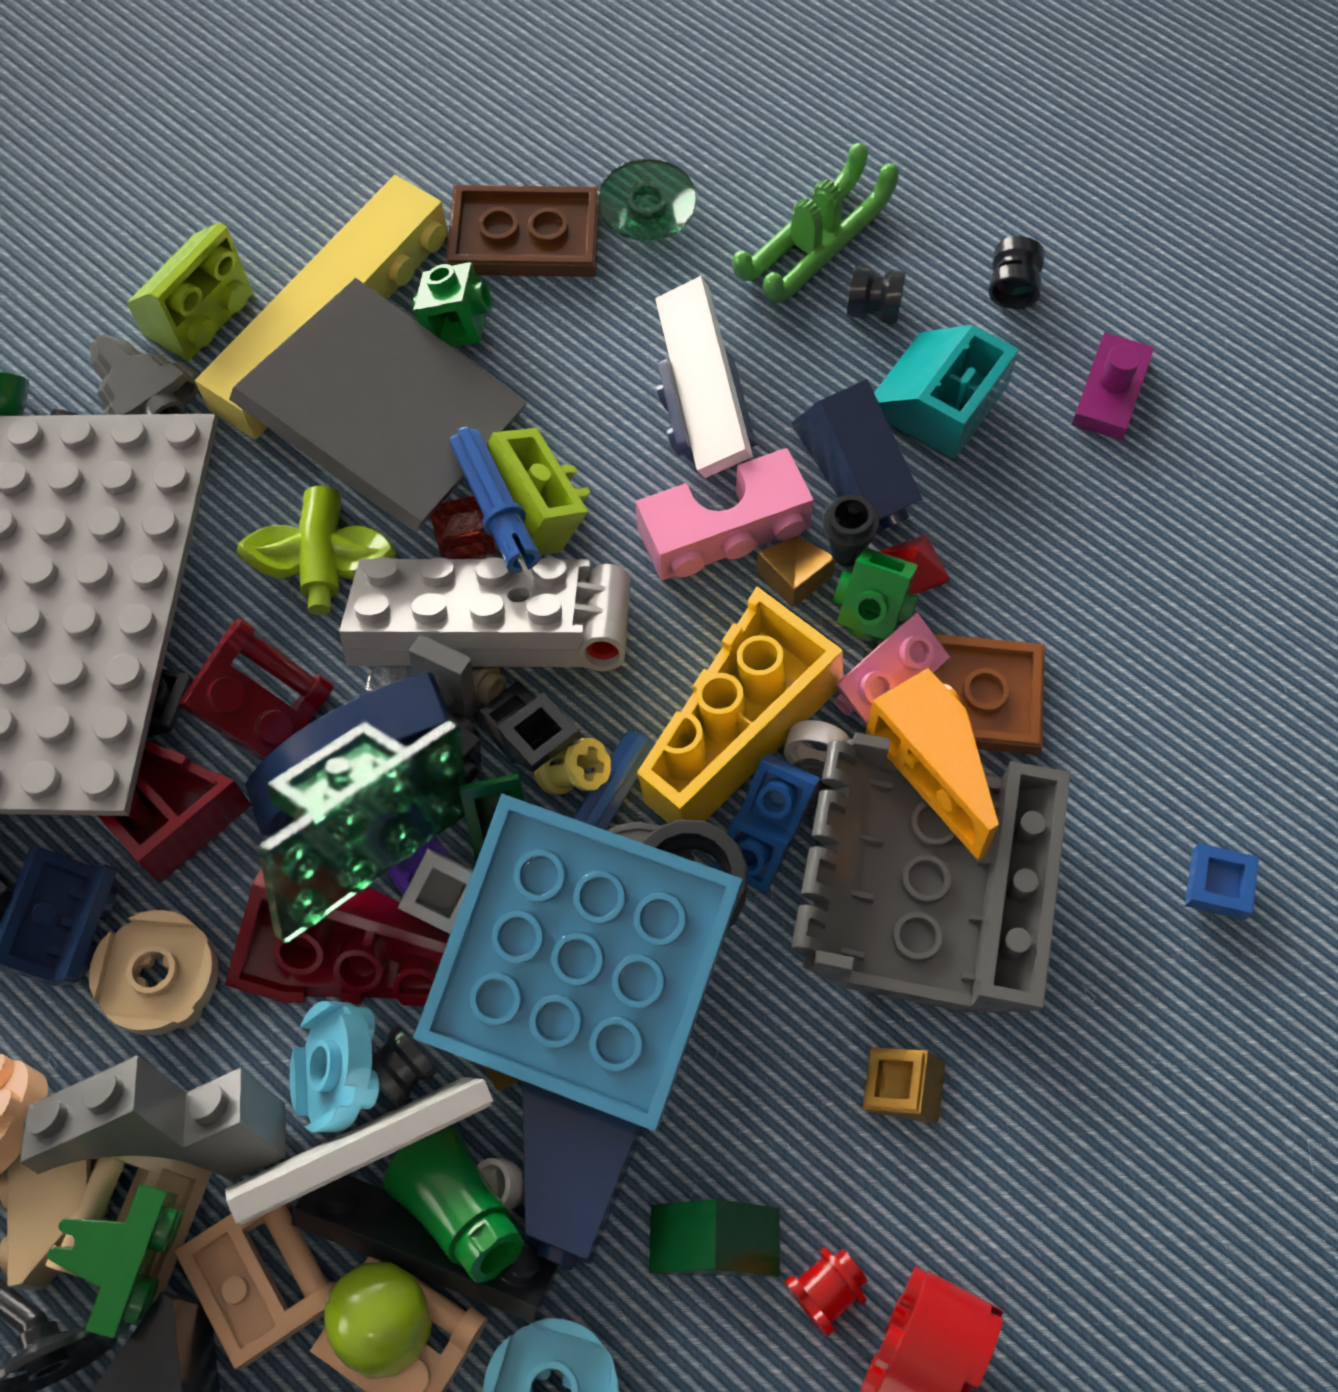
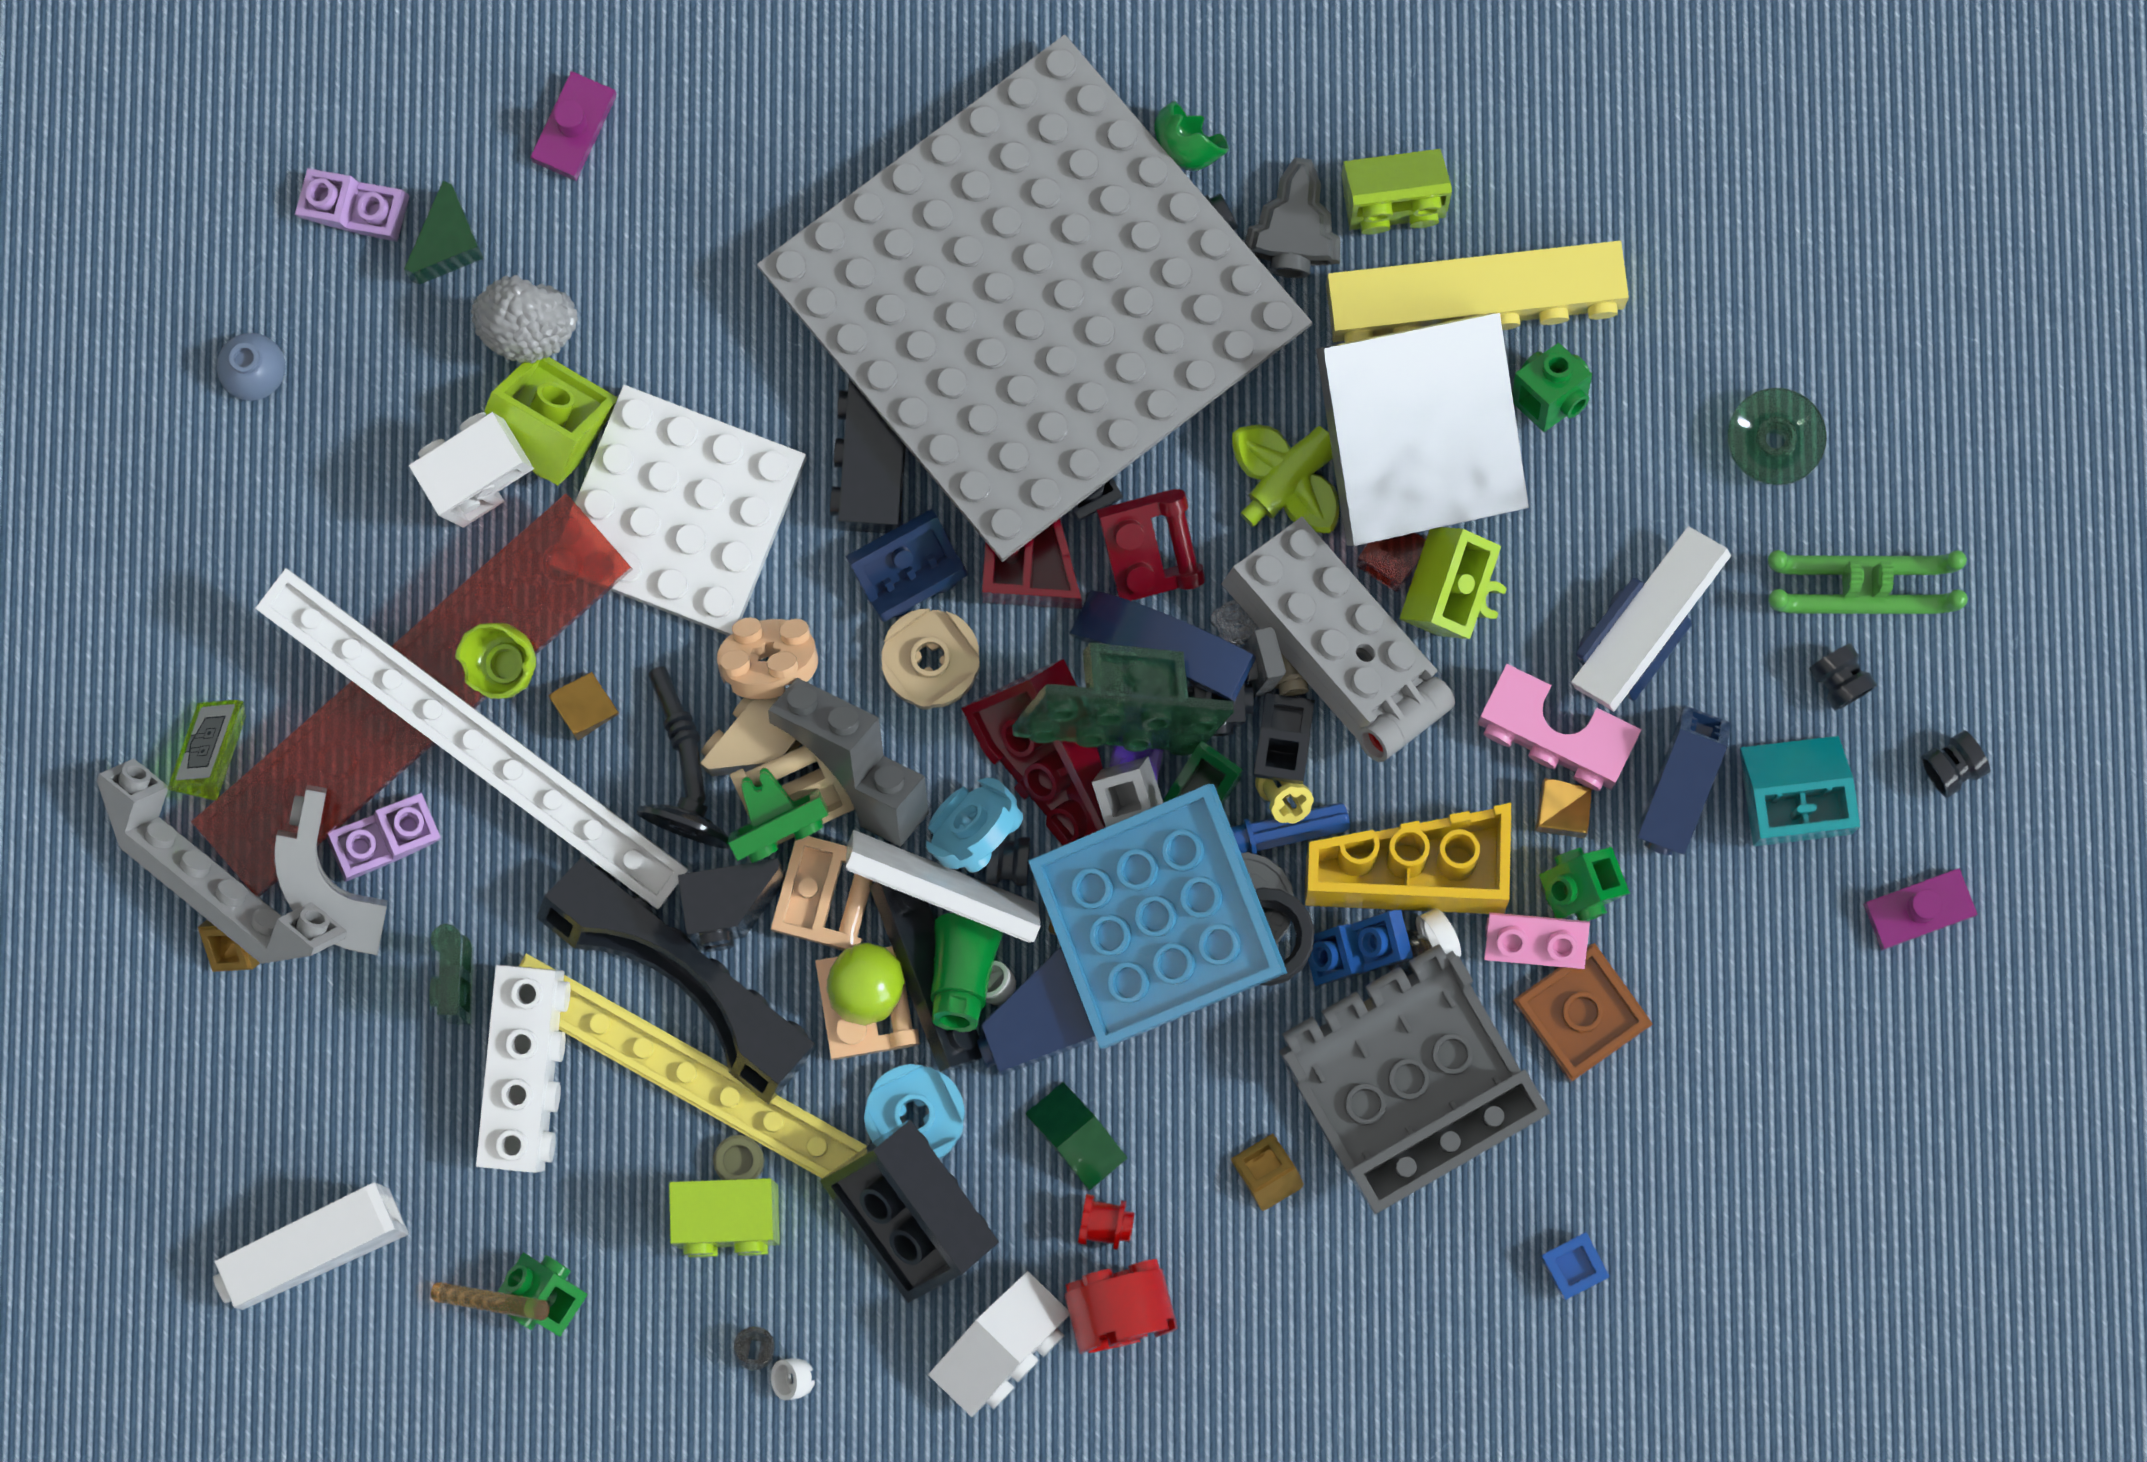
camera: 50 degrees right, 15 degrees up
(502, 516) = (1416, 572): blue axle -> none
(524, 230) = (1674, 365): reddish brown tile -> none
(850, 527) = (1620, 812): black cone -> none
(929, 571) = (1645, 886): red slope -> none
(937, 755) = (1499, 1005): light orange slope -> none

